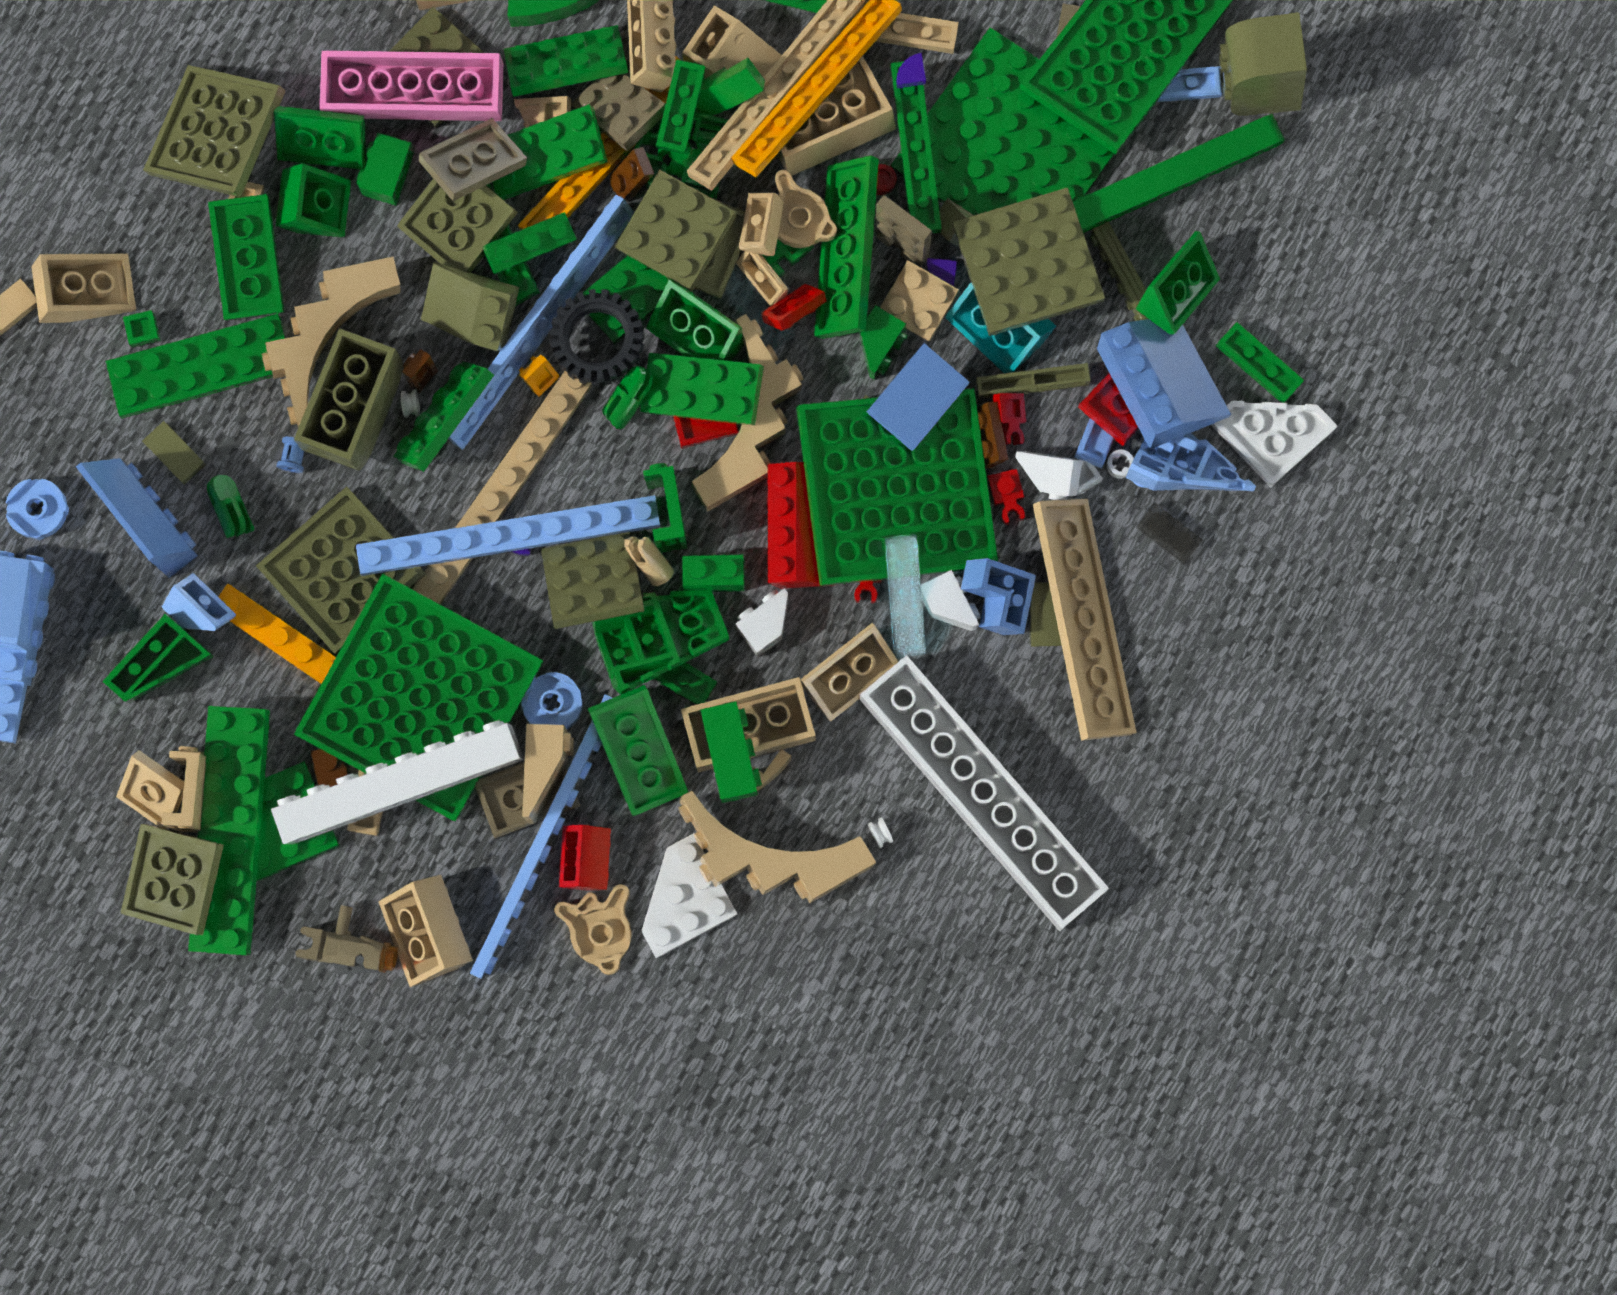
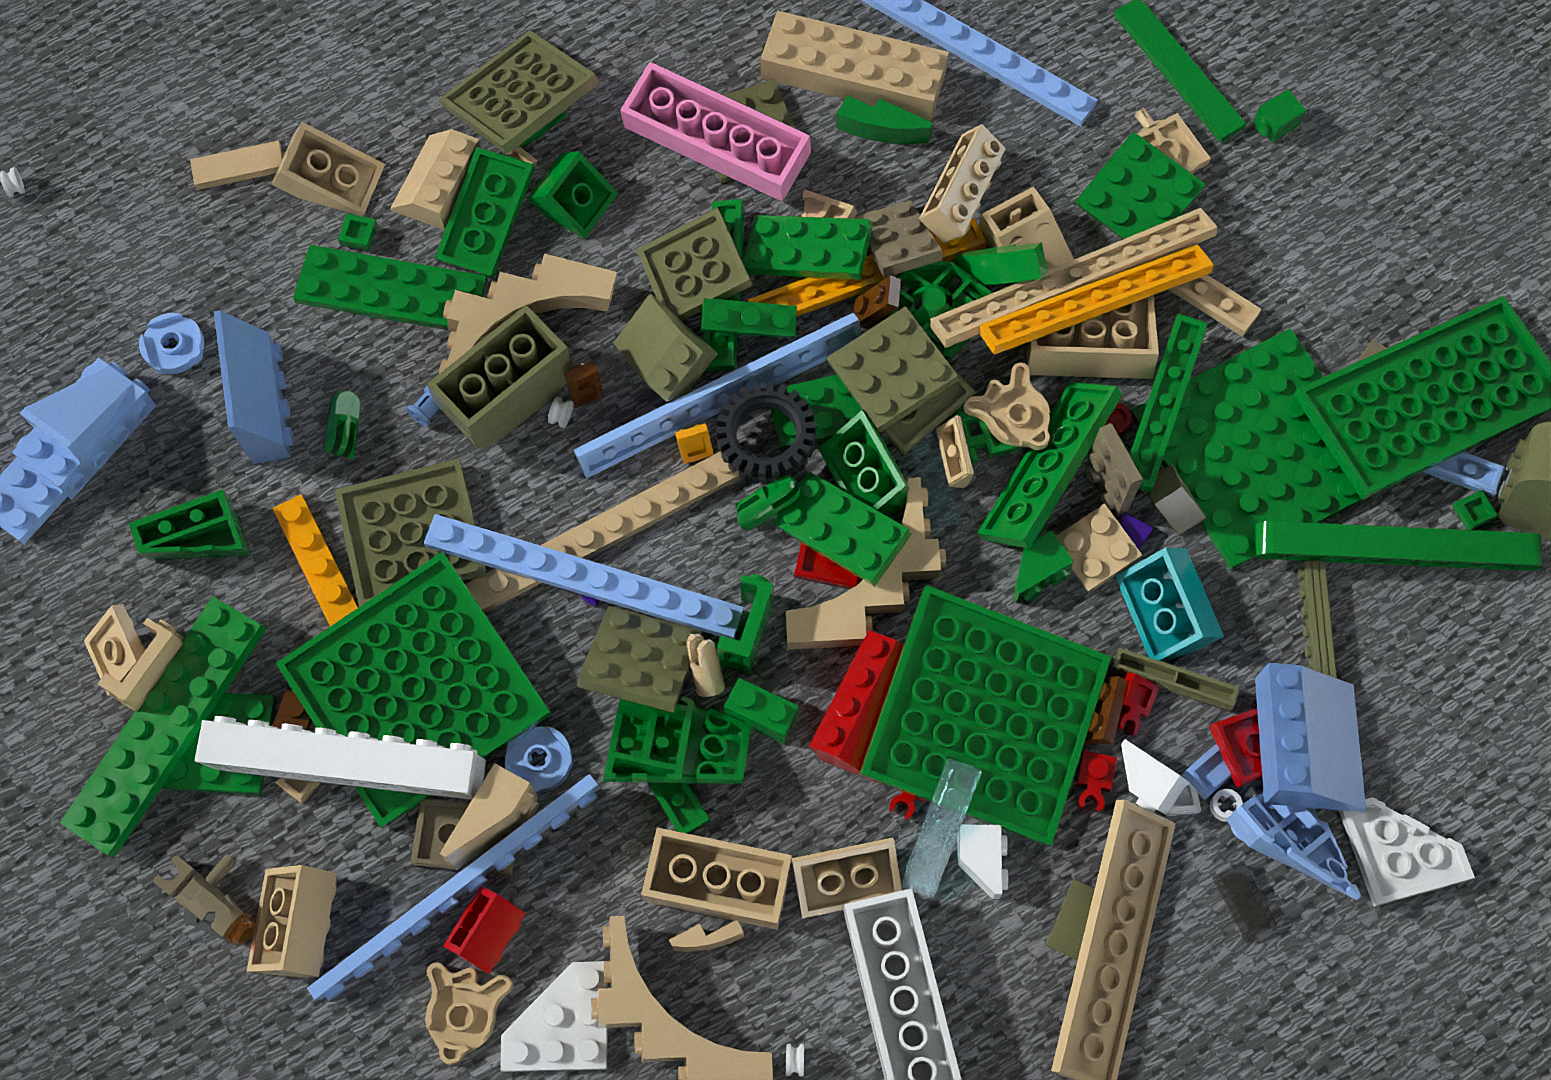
camera: 25 degrees right, 10 degrees down
(172, 879) = (82, 744): olive plate -> none
(174, 452) = (322, 354): olive tile -> none
(183, 245) = (436, 178): none -> tan slope
(196, 605) = (258, 497): light blue slope -> none
(320, 137) = (609, 140): green tile -> none
(385, 169) = (654, 195): green brick -> none
(443, 415) = (590, 432): green plate -> none
(472, 159) = (735, 218): dark tan plate -> none
(565, 60) = (869, 176): green plate -> none
(638, 750) = (593, 847): green plate -> none
(681, 106) = (955, 259): green plate -> none
(730, 751) = (682, 896): green brick -> none
(761, 223) = (978, 401): tan slope -> none
(765, 624) = (786, 787): white slope -> none
(793, 307) = (968, 495): red plate -> none
(911, 72) = (1193, 330): dark purple tile -> none
(918, 397) = (1050, 636): medium blue tile -> none
(1005, 593) = (1045, 875): medium blue brick -> none
(1028, 261) = (1226, 558): olive plate -> none
(1180, 286) = (1370, 656): green slope -> none
(1211, 116) = (1475, 510): none -> green tile
(1259, 363) = (1419, 774): green plate -> none

